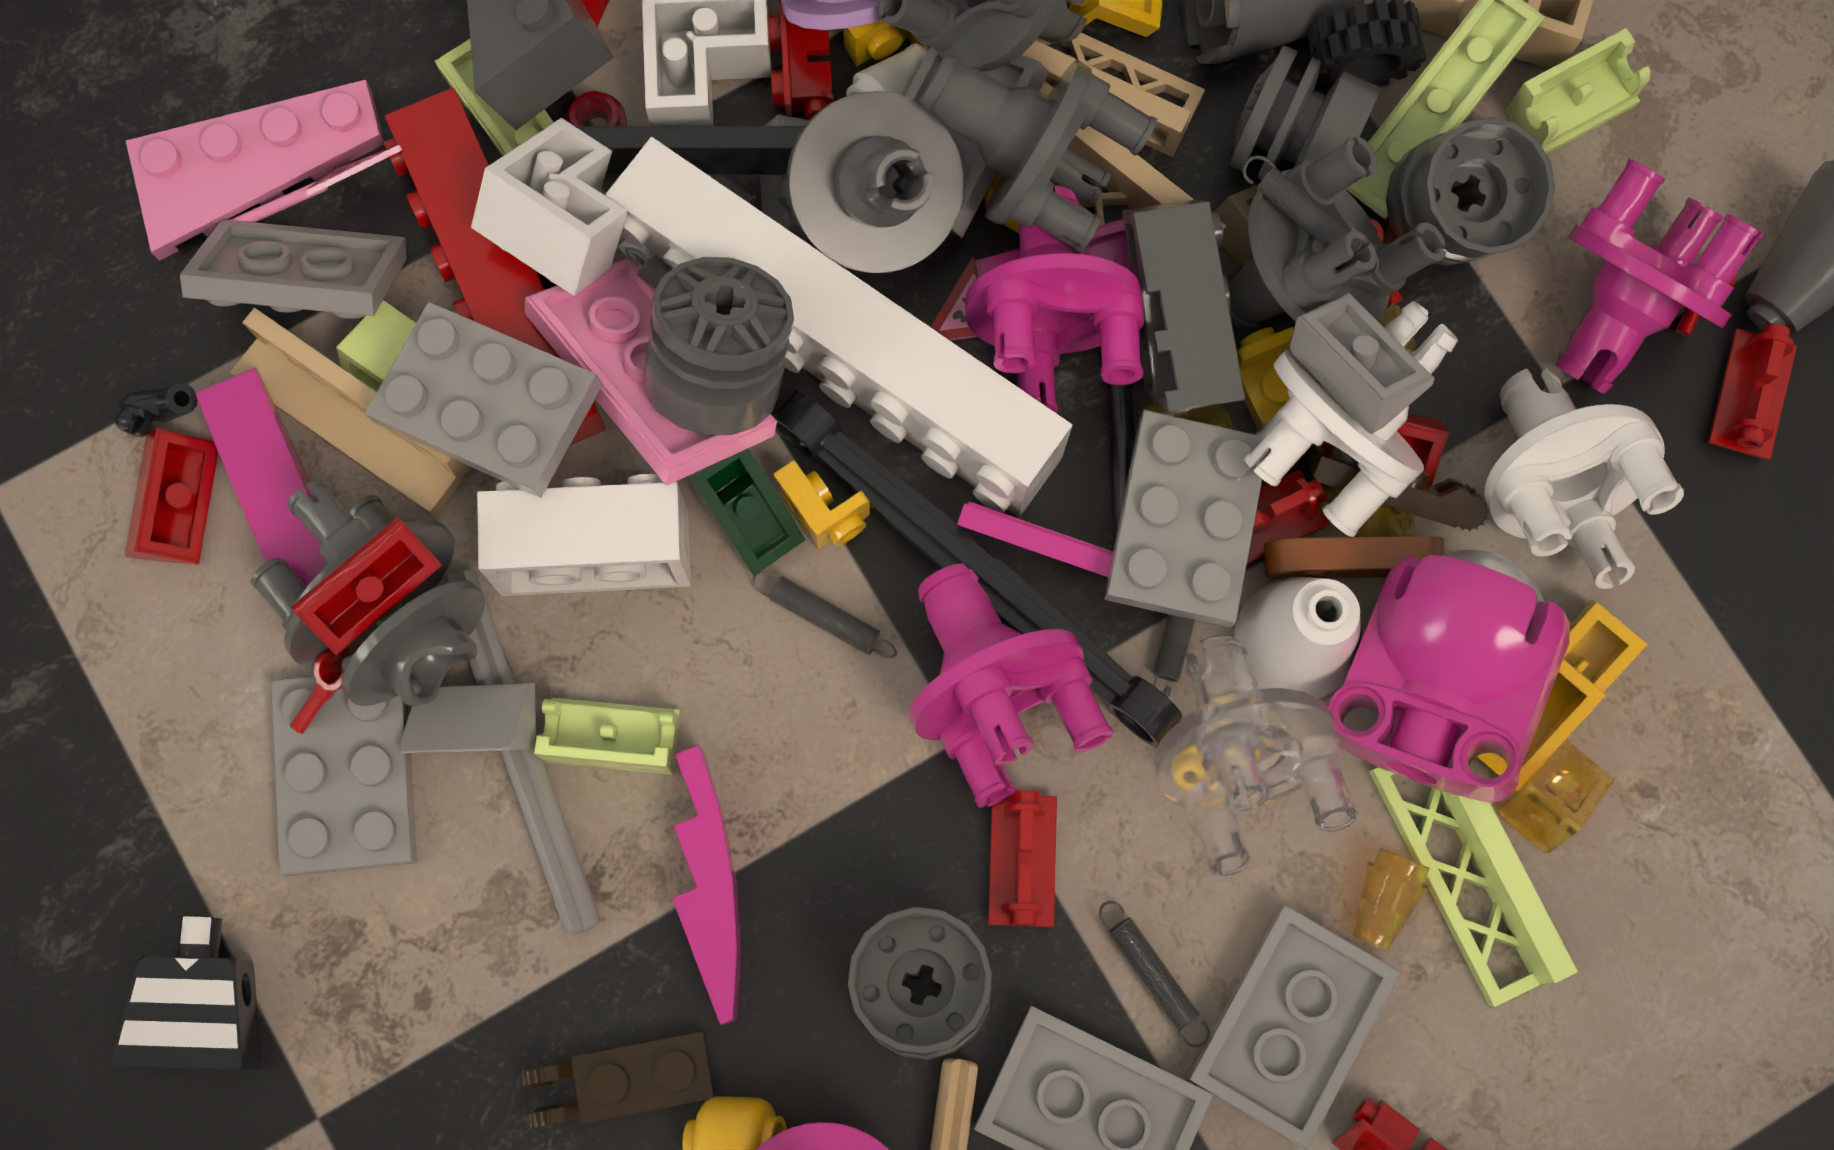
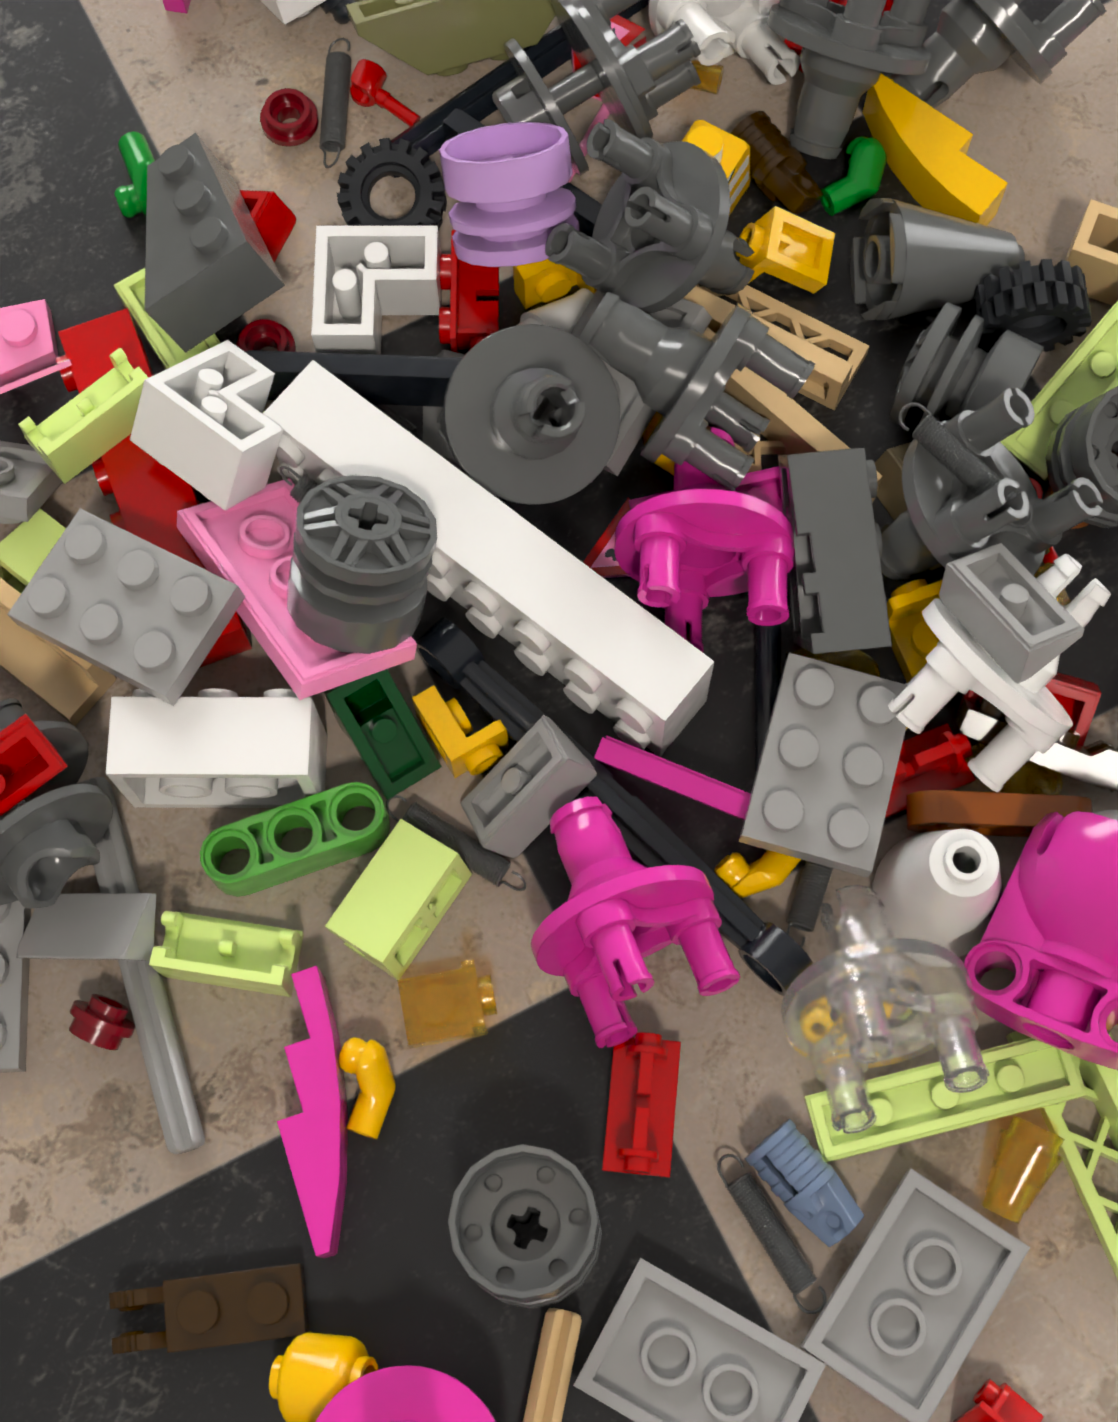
camera: 10 degrees right, 5 degrees down
(428, 207) = (90, 421): none -> yellowish green hinge
(489, 811) = (101, 1022): none -> dark red plate
(635, 615) = (265, 831): none -> bright green beam
(763, 855) = (375, 1082): none -> yellow arm
(773, 673) = (399, 899): none -> yellowish green hinge
(827, 774) = (446, 1005): none -> clear yellow bracket
(892, 558) = (527, 789): none -> light grey slope
(1119, 632) = (756, 877): none -> yellow arm
(1184, 924) = (805, 1183): none -> sand blue hinge
(1291, 843) = (919, 1105): none -> yellowish green tile

